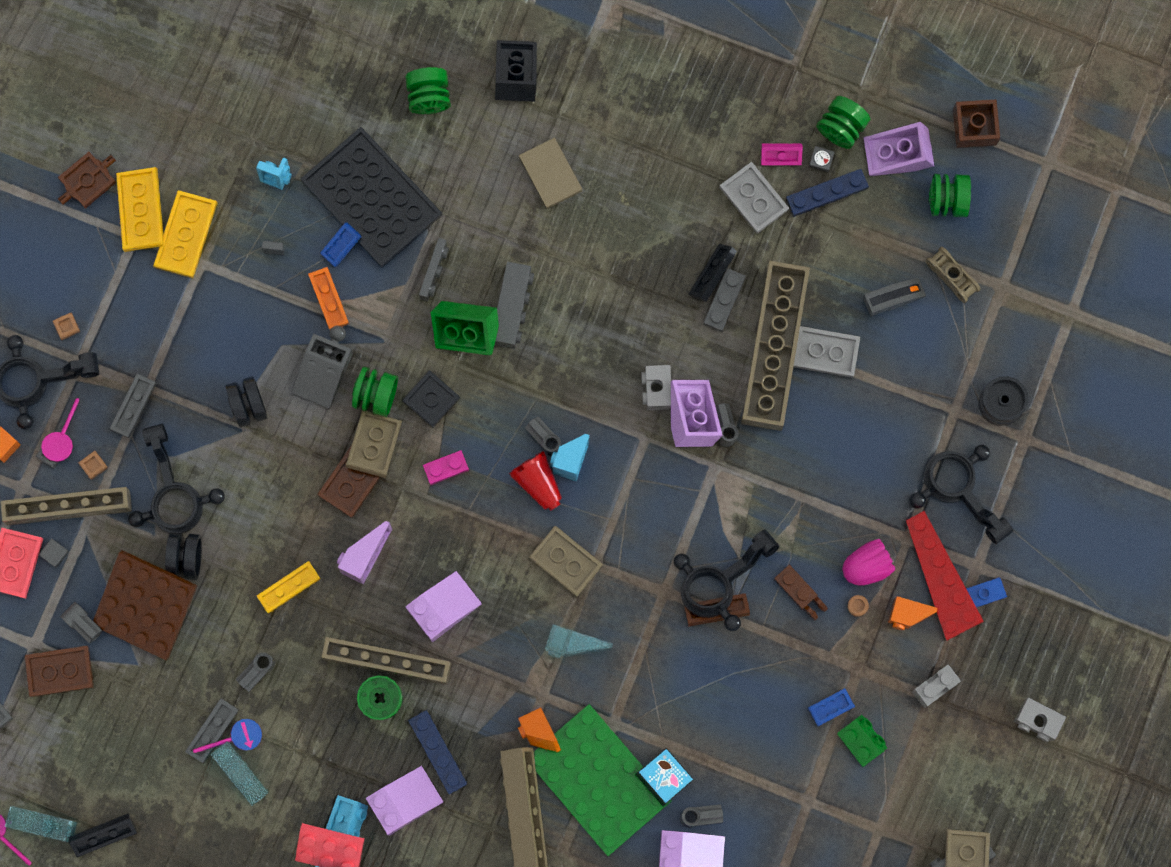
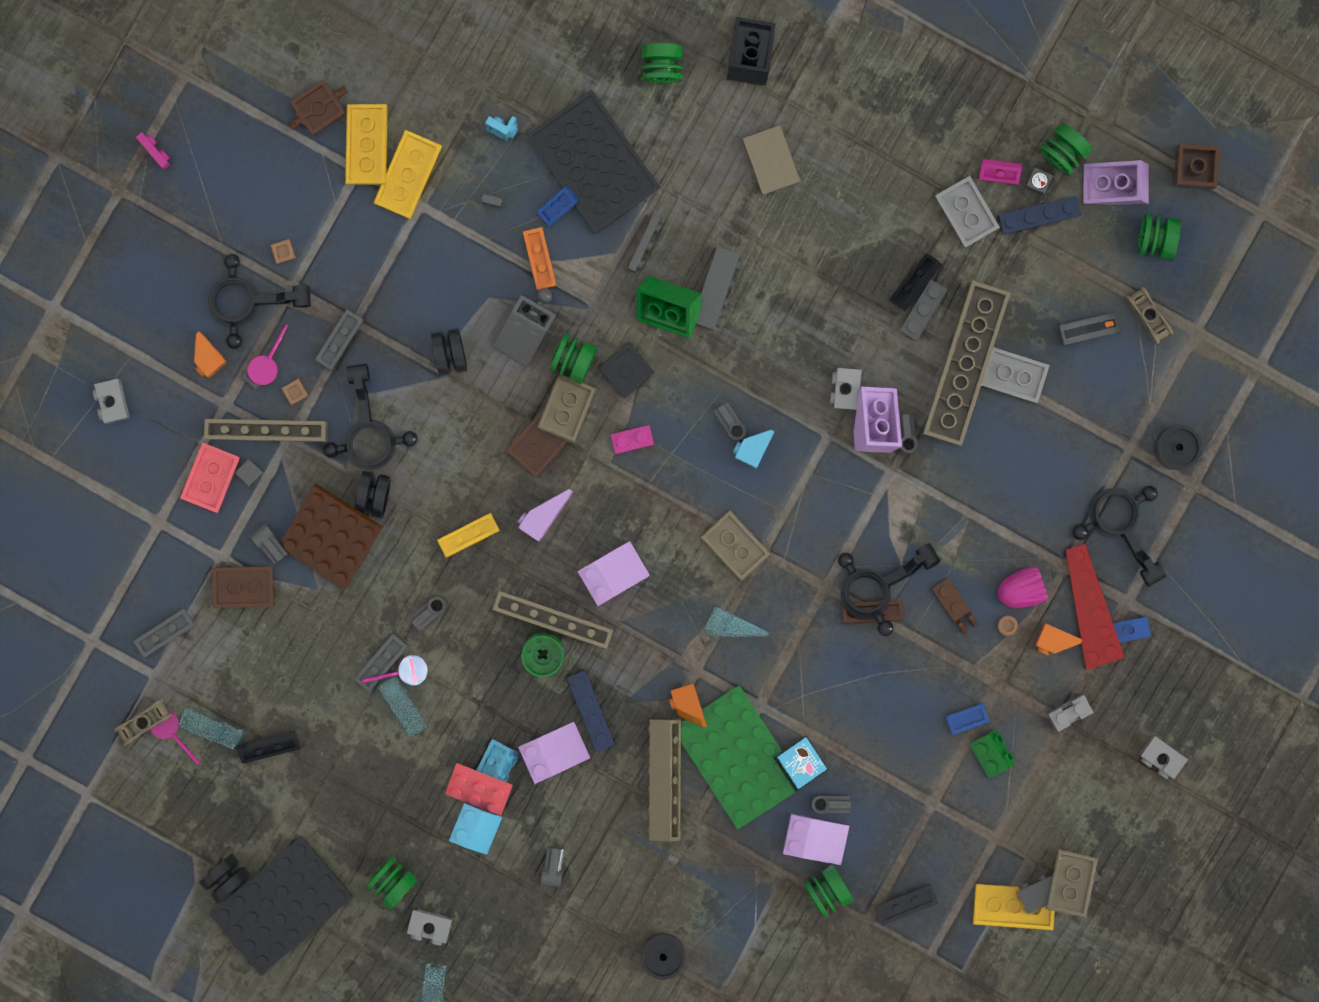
camera: 10 degrees right, 10 degrees up
(538, 481) = (719, 465): red cone -> none

